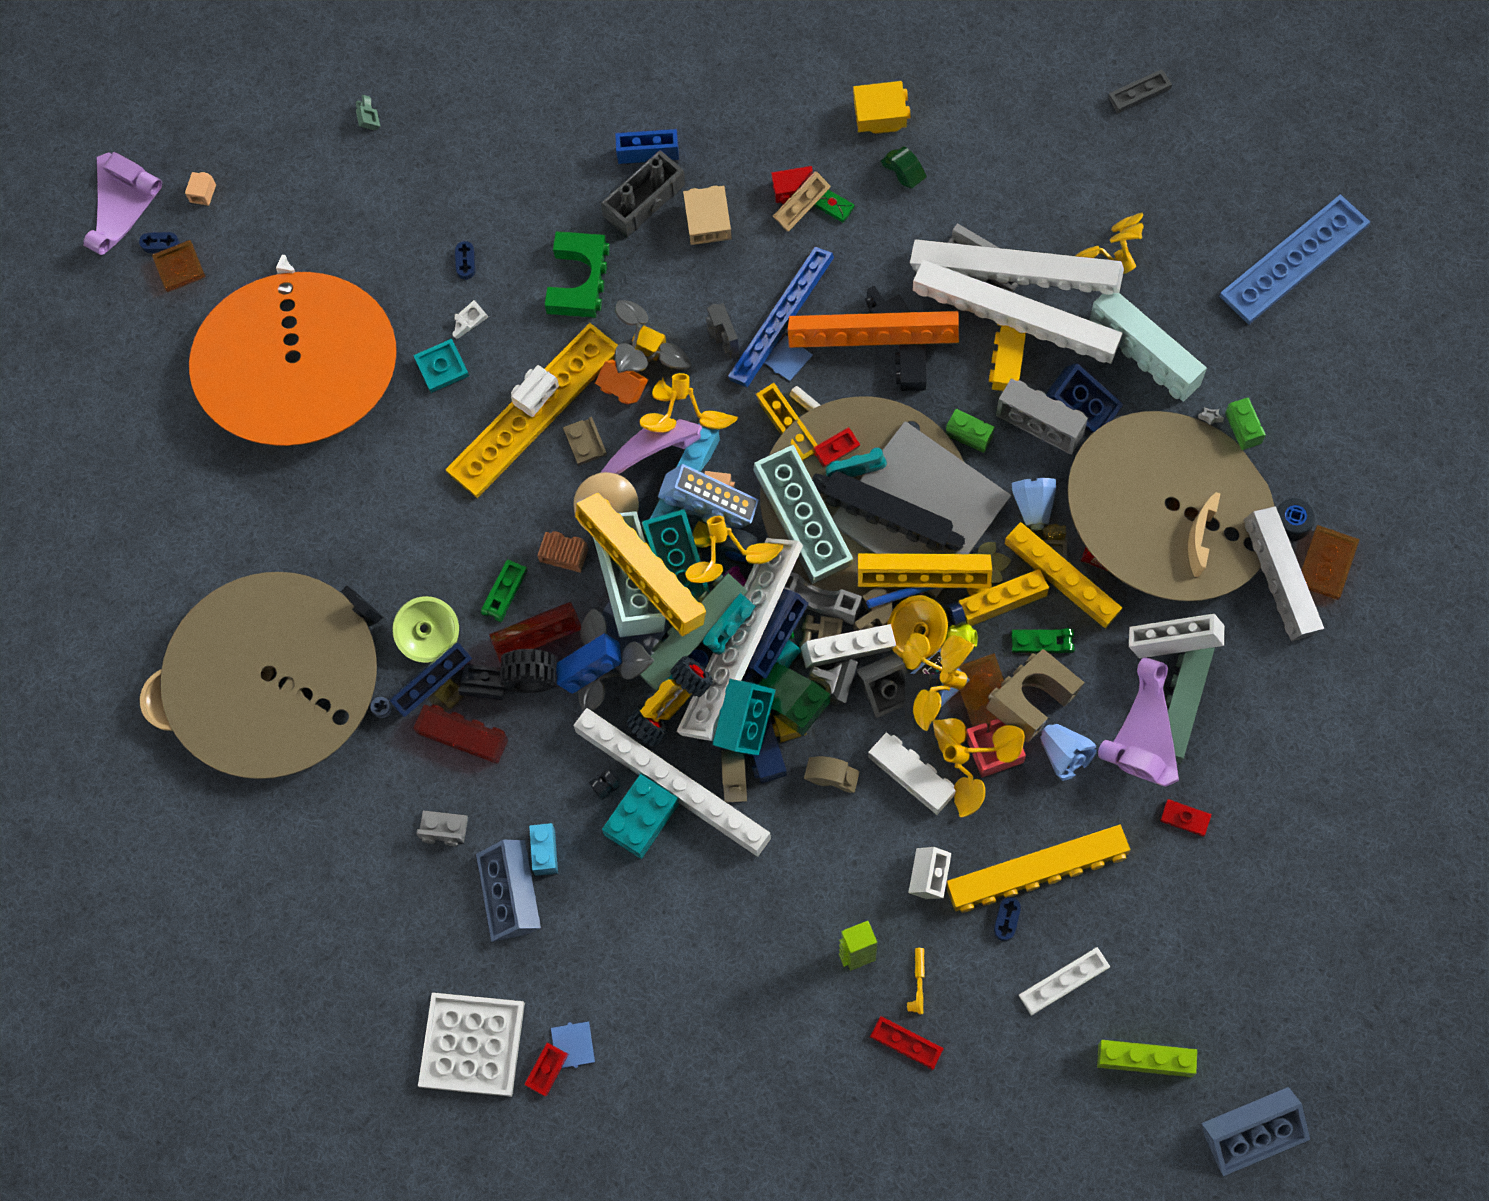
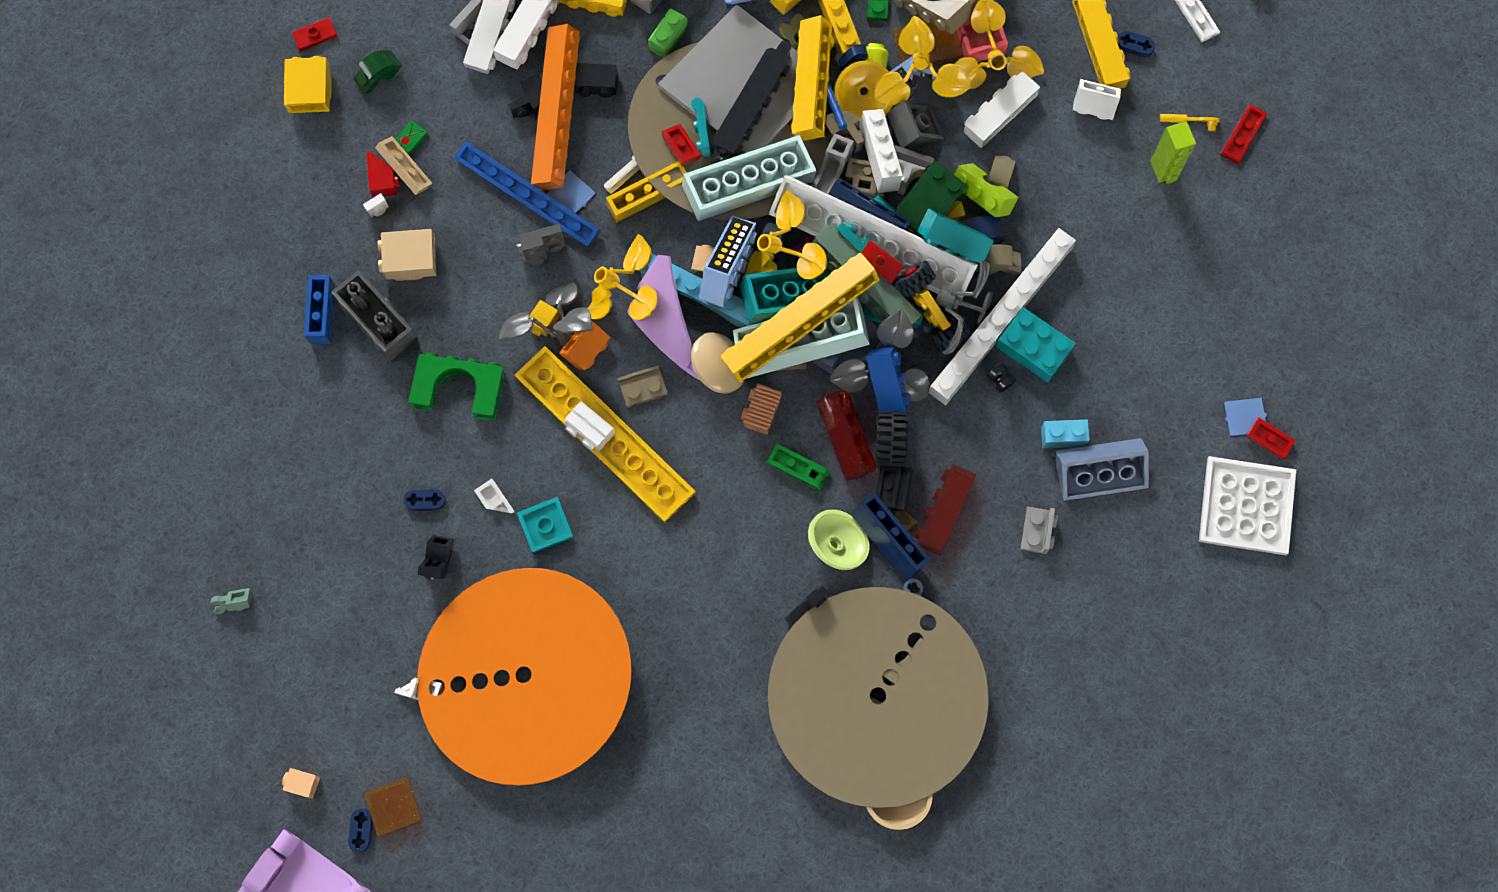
camera: 90 degrees left, 5 degrees up
(405, 275) = (437, 558): none -> black brick
(670, 714) = (951, 301): none -> dark grey plant
(706, 640) = (882, 261): none -> red plate
(758, 183) = (376, 206): none -> white plate
(796, 762) = (992, 198): none -> lime arch
(941, 109) = (314, 34): none -> red plate

